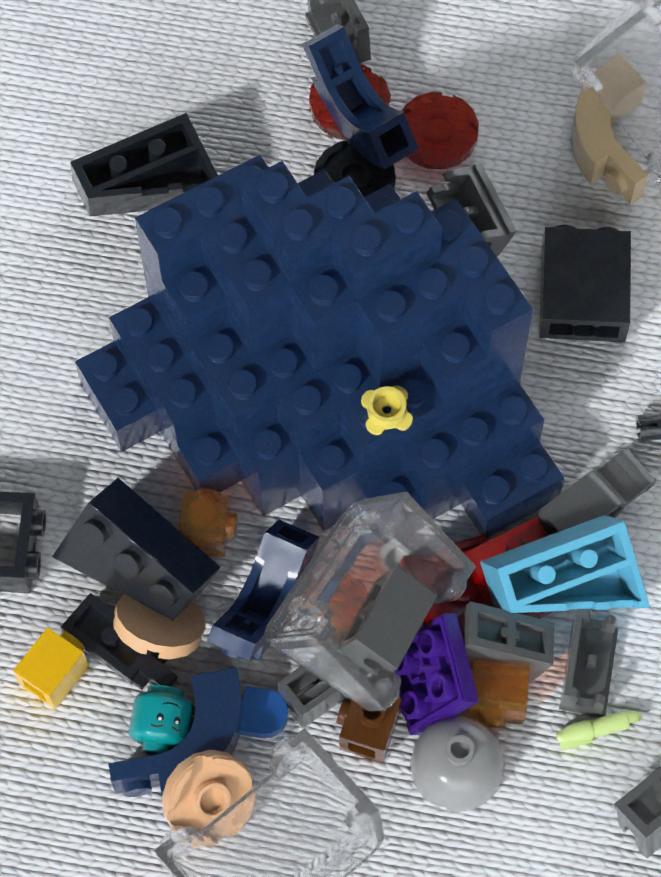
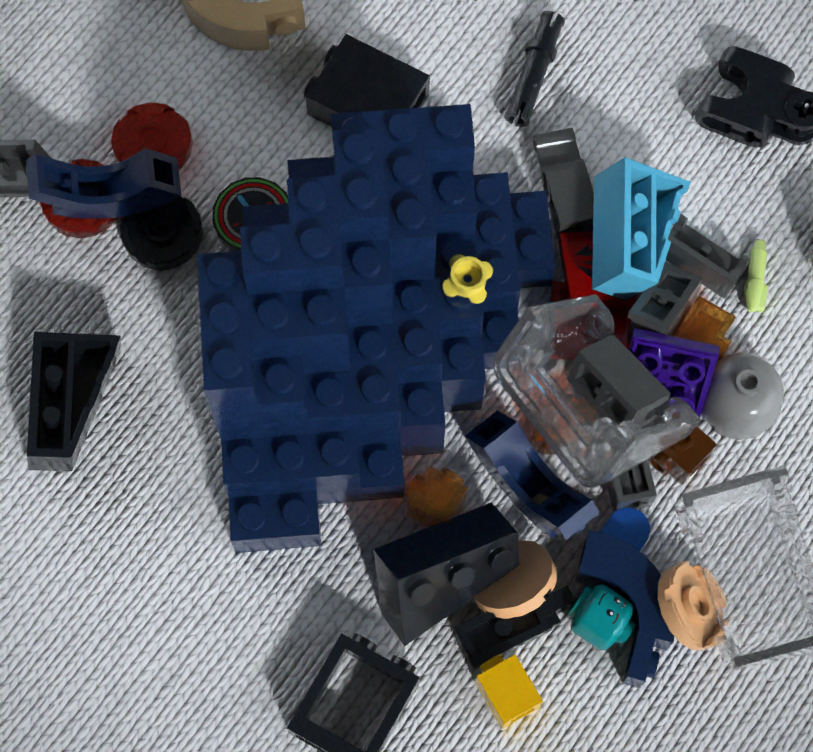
camera: 65 degrees left, 5 degrees up
(480, 202) = (253, 148): dark grey hinge -> none

